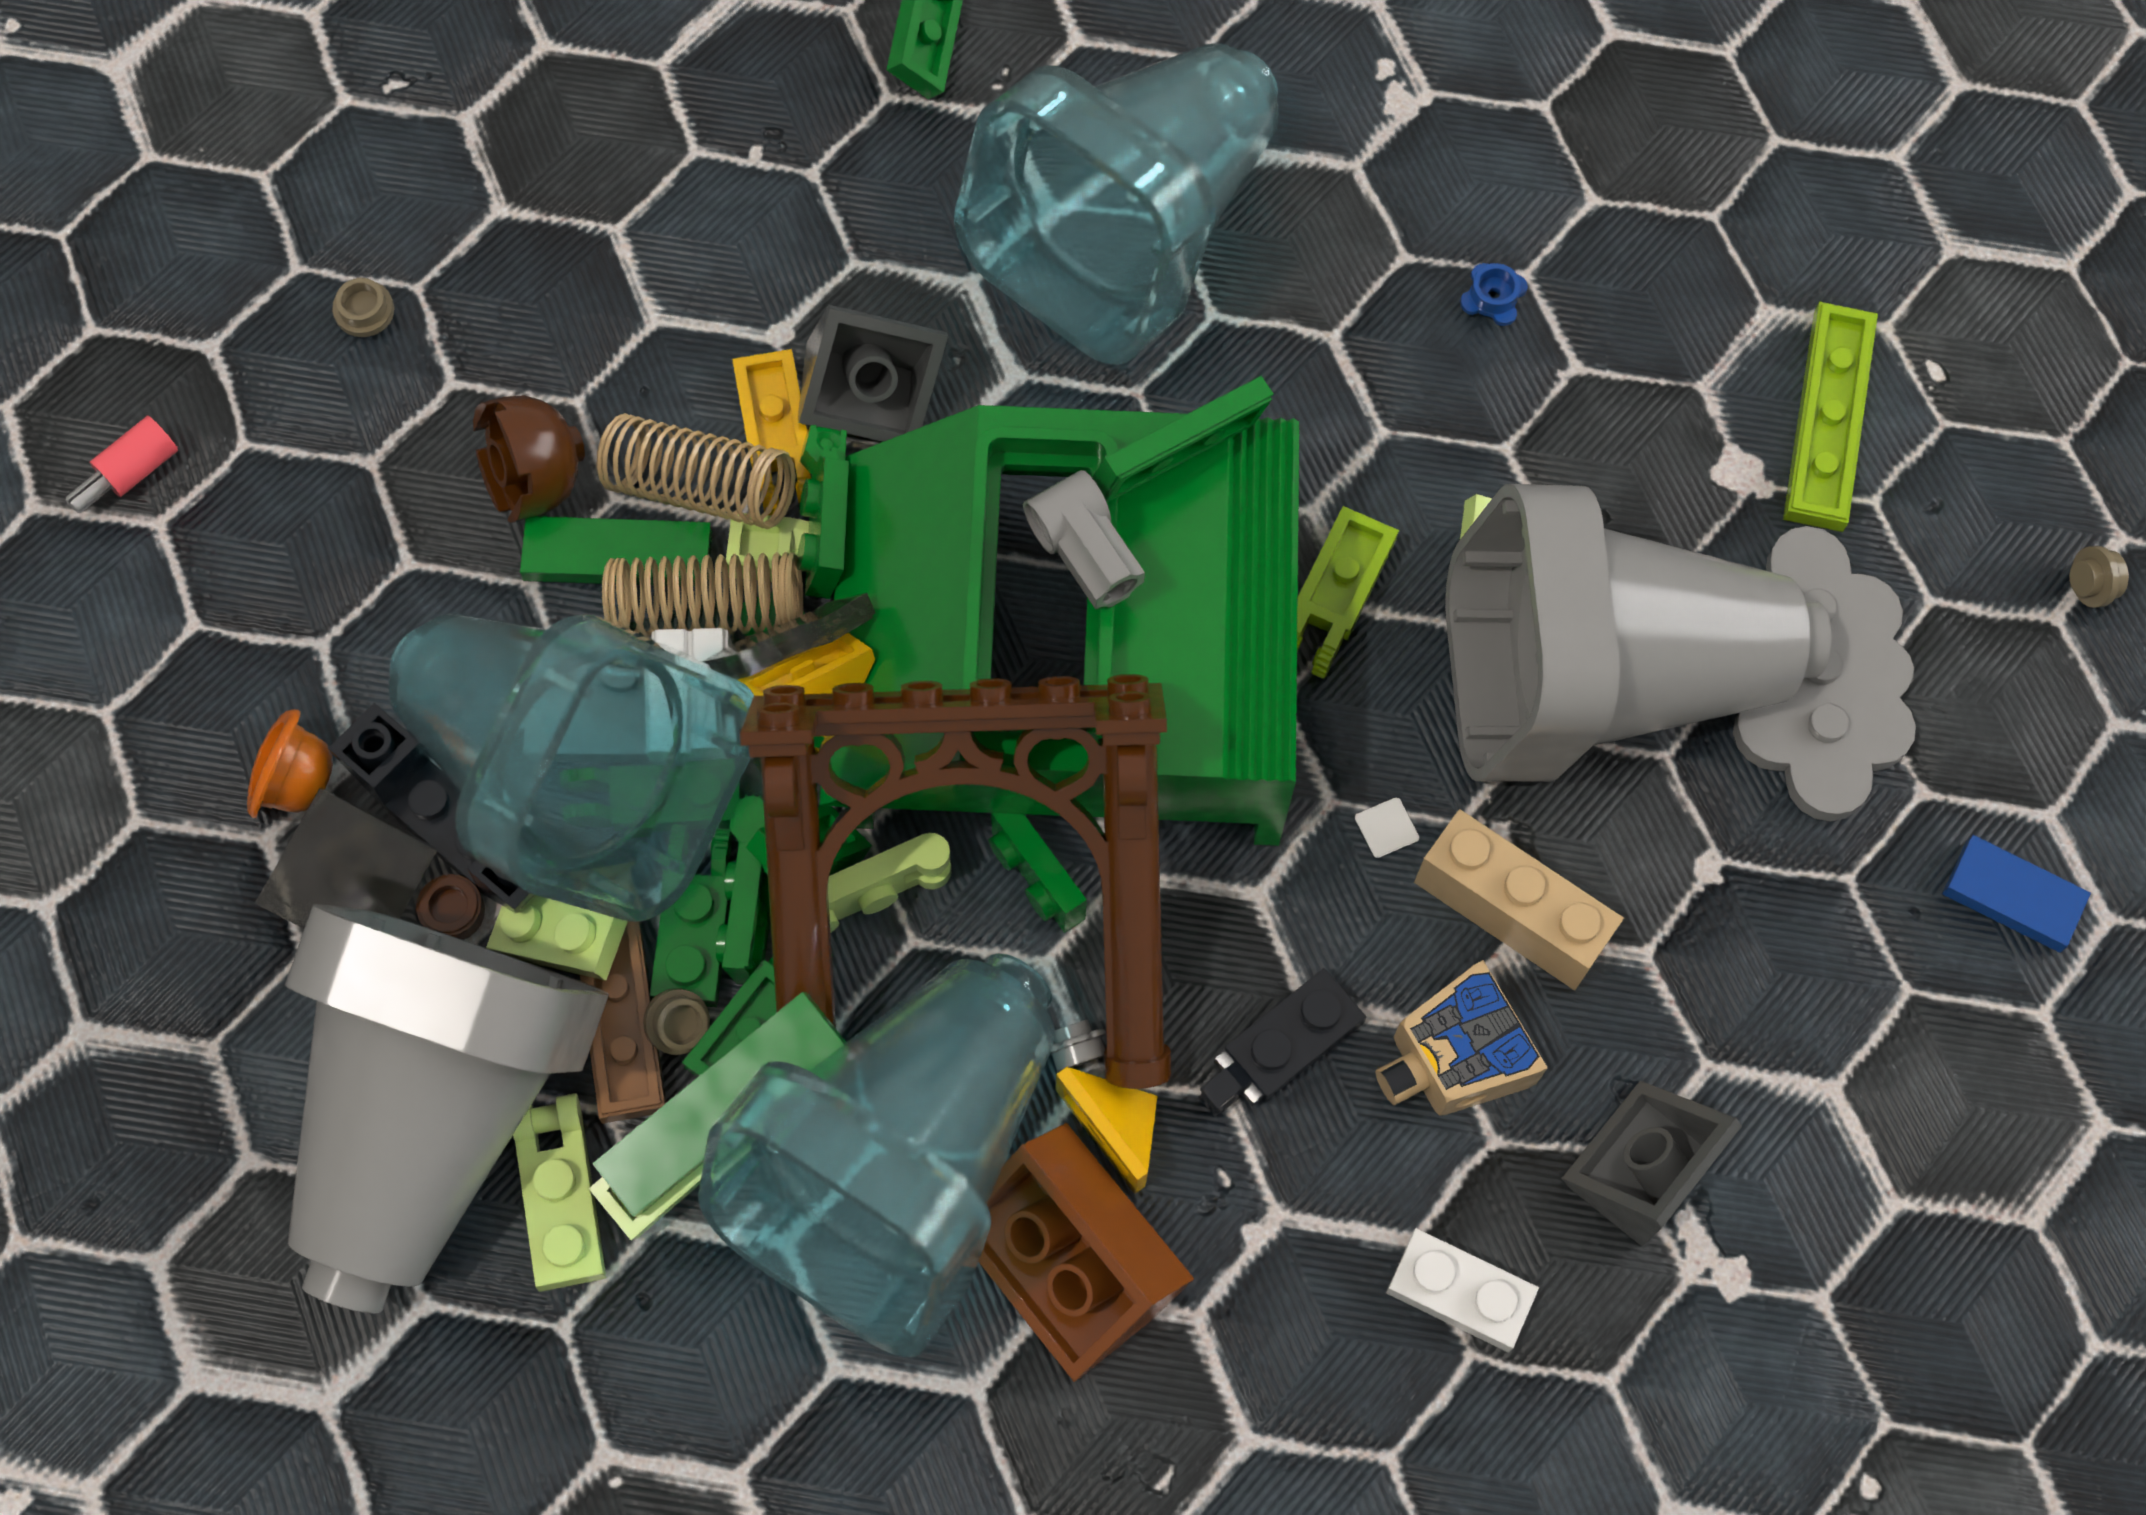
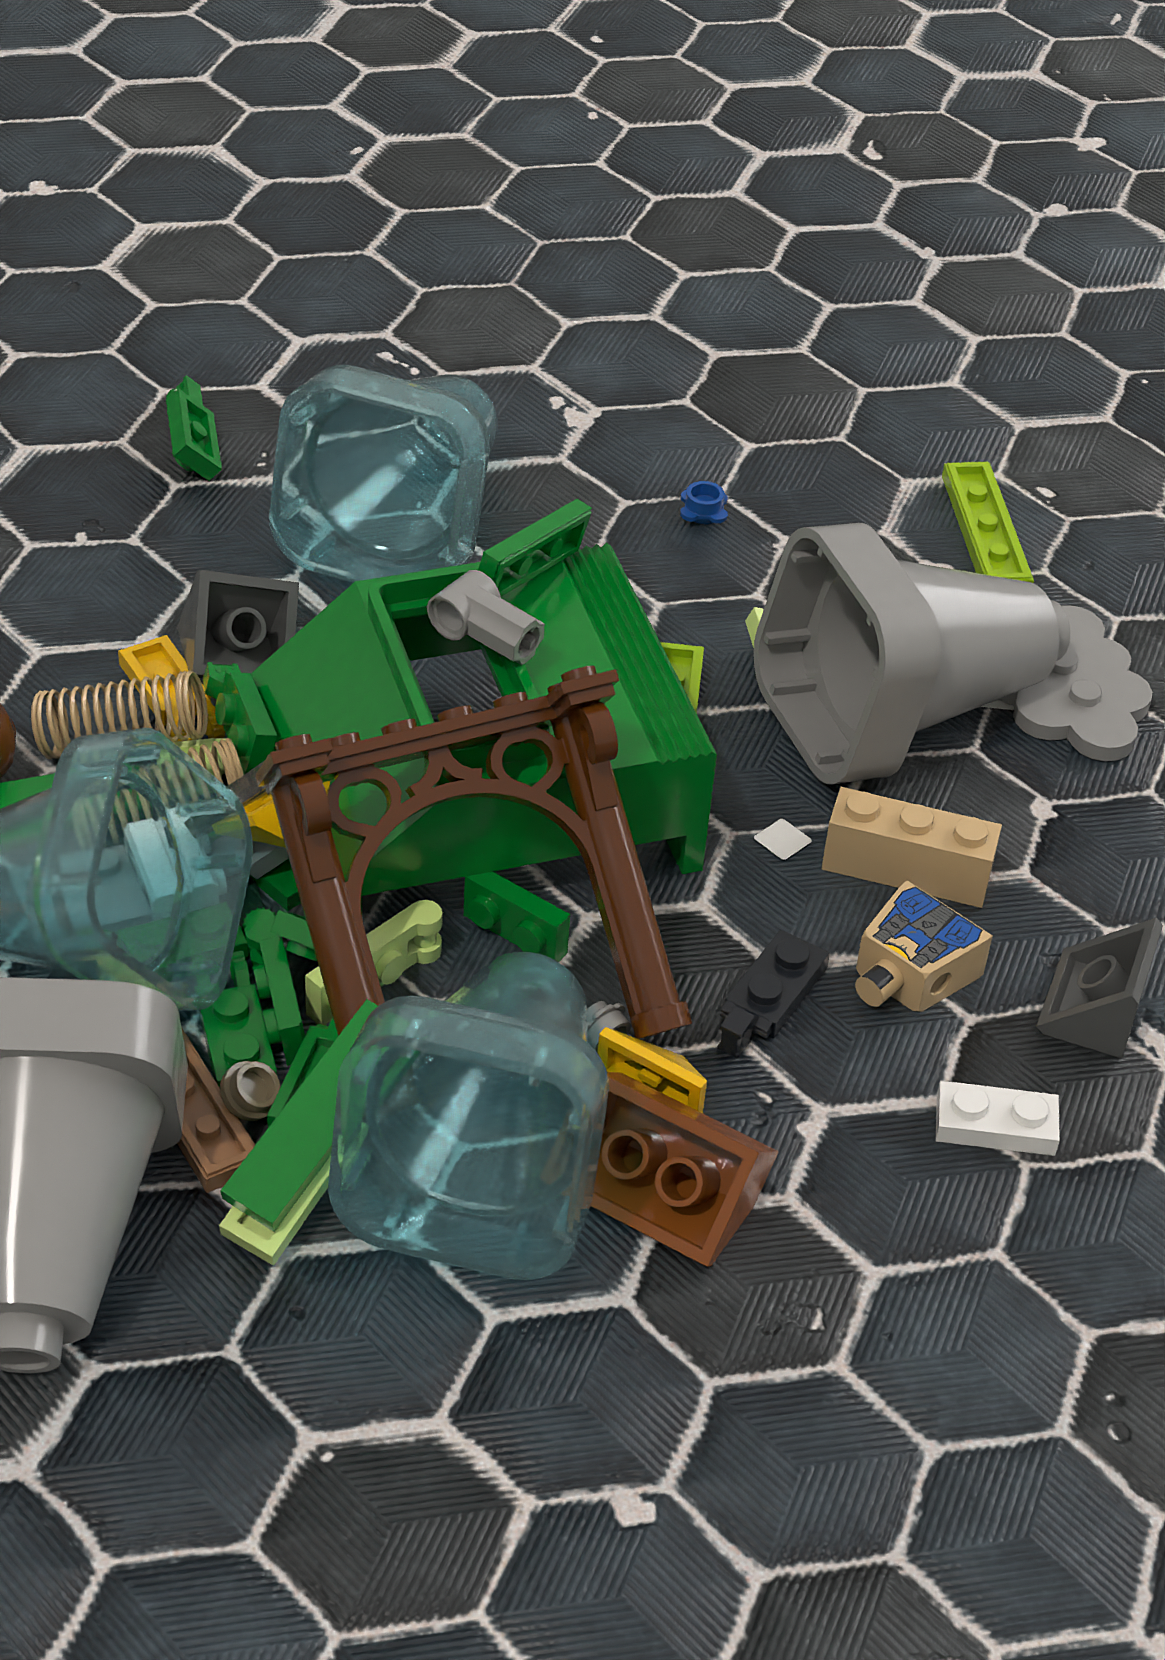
camera: 20 degrees left, 25 degrees down
(558, 1197) = (191, 1250): yellowish green plate -> none

